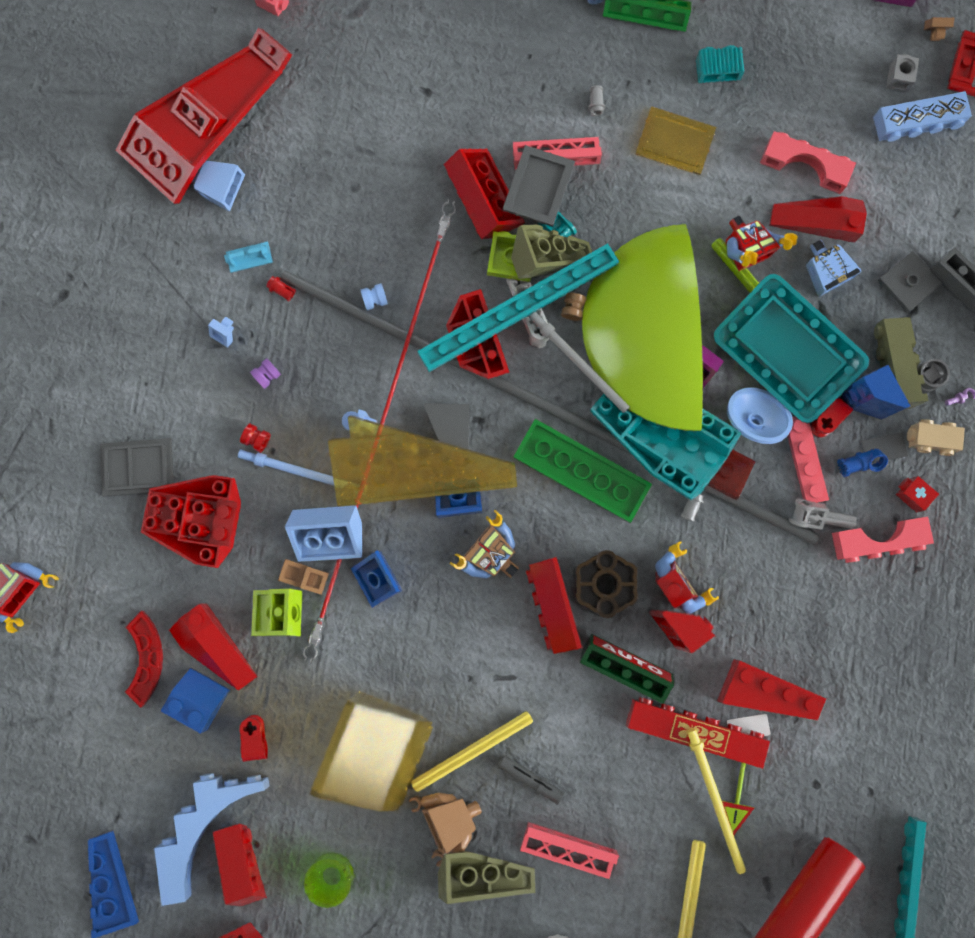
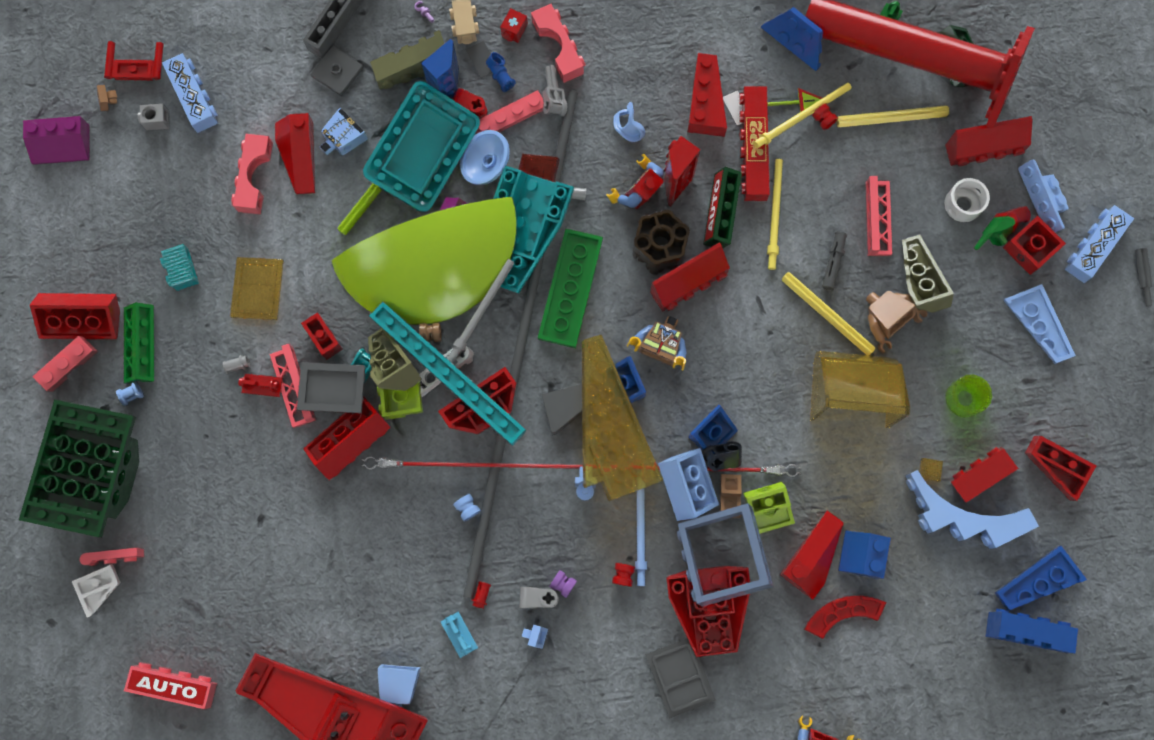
camera: 110 degrees left, 5 degrees down
(57, 855) = (1031, 631): none -> blue wedge
(233, 580) = (757, 548): none -> sand blue window
(253, 742) = (881, 494): red piece -> none
(260, 340) = (534, 598): none -> light grey piece
(264, 807) = (931, 469): none -> clear yellow plate
(344, 581) = (726, 455): none -> black piece
(564, 712) = (773, 249): none -> light yellow bar
(567, 120) = (261, 385): none -> red hinge
(600, 191) = (321, 336): none -> red brick
(708, 827) = (825, 117): none -> red wheel
(750, 593) = (632, 130): none -> light blue piece
(754, 243) = (337, 198): torso -> none
(819, 828) = (797, 35): none -> blue wing
(934, 373) = (412, 32): flat silver wheel -> none

